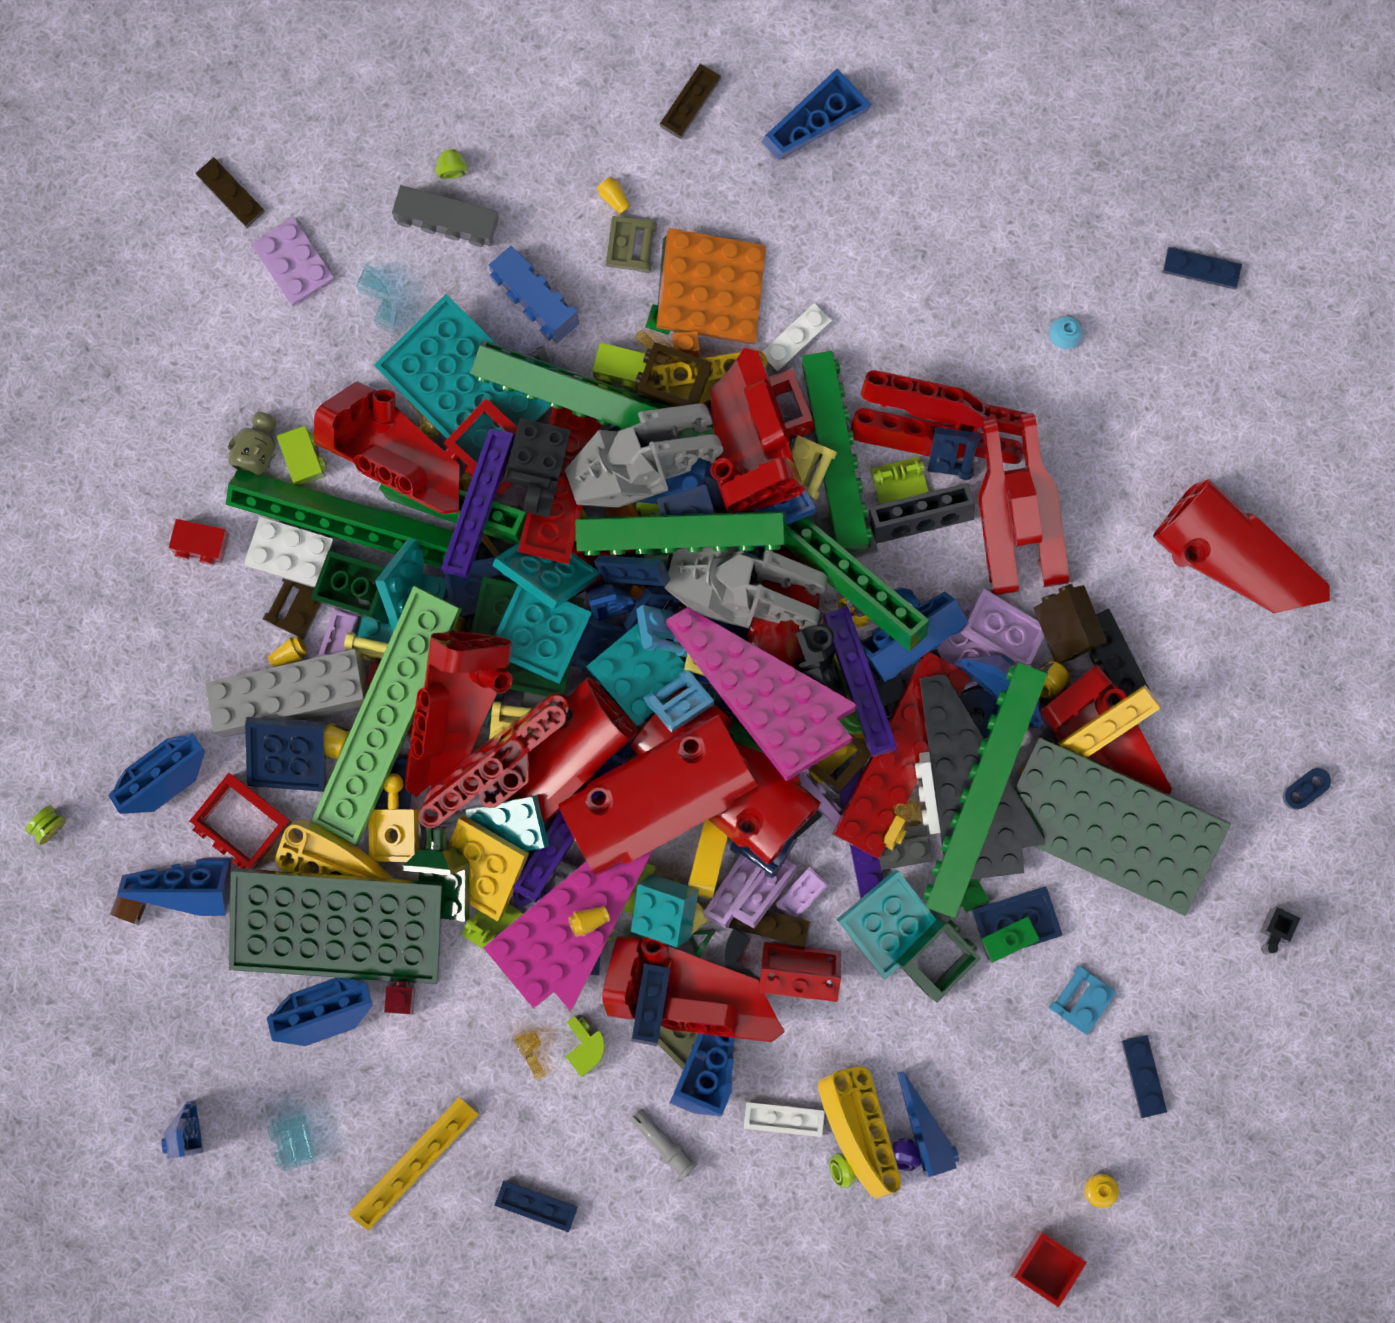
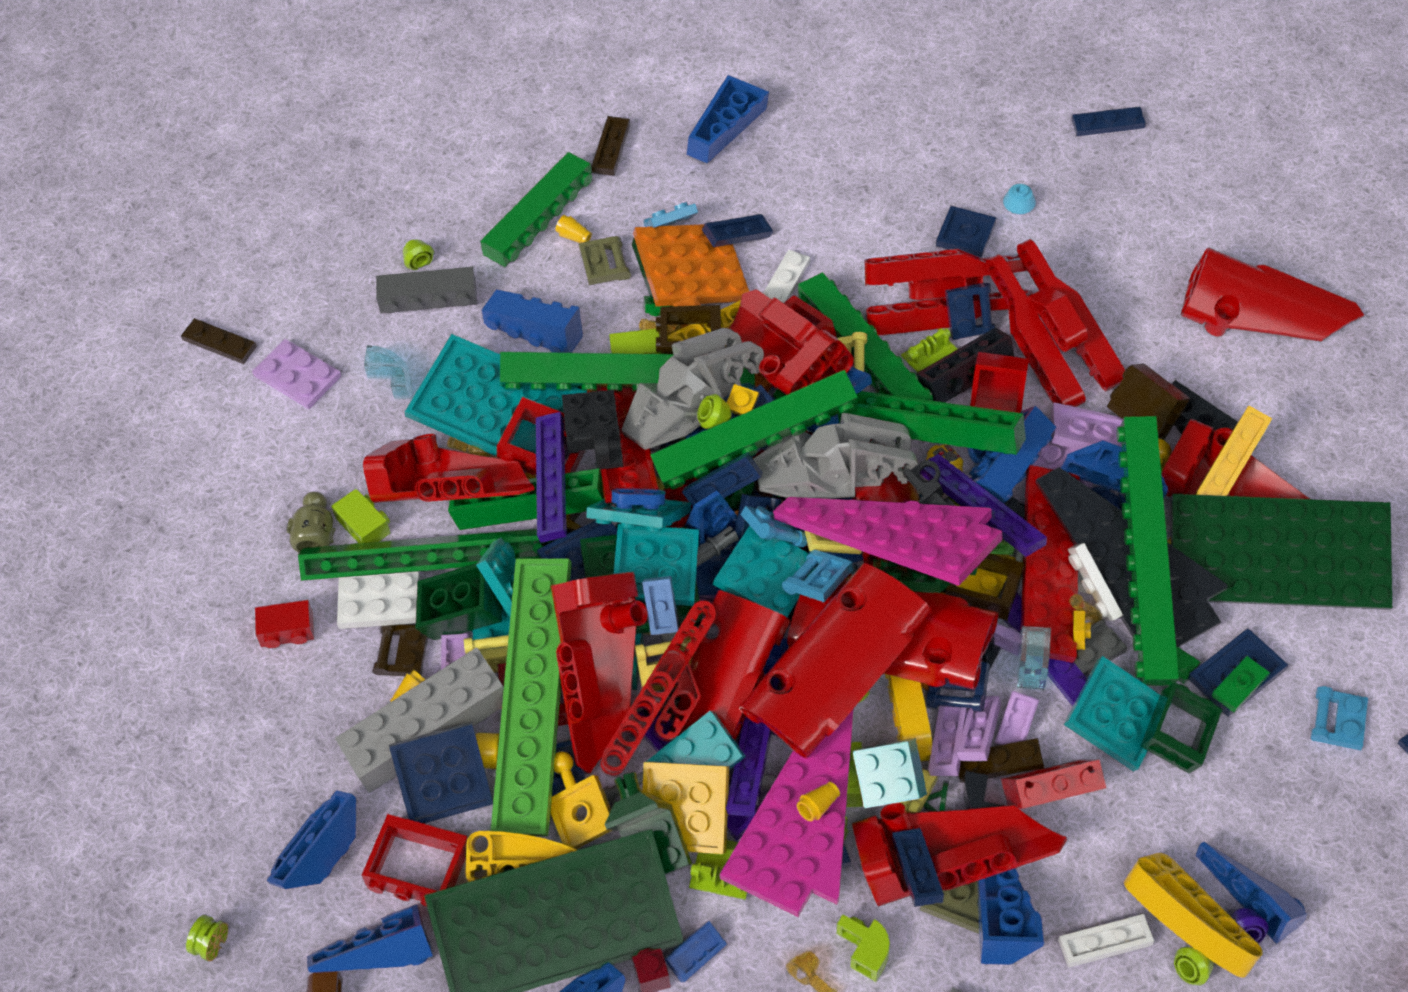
camera: 15 degrees left, 25 degrees down
(443, 995) = (695, 951): none -> blue plate
(526, 679) = (660, 605): none -> medium blue plate
(546, 563) = (627, 497): none -> blue plate
(588, 155) = (536, 209): none -> green brick
(604, 624) = (715, 545): none -> dark grey axle
(649, 501) = (713, 411): none -> lime cone
(681, 496) = (742, 399): none -> yellow plate
(713, 221) = (681, 212): none -> dark azure plate
(771, 265) = (737, 230): none -> dark blue plate
(840, 845) = (1033, 658): none -> clear light blue brick
(941, 549) = (999, 382): none -> red piece
(995, 350) = (966, 231): none -> dark blue plate

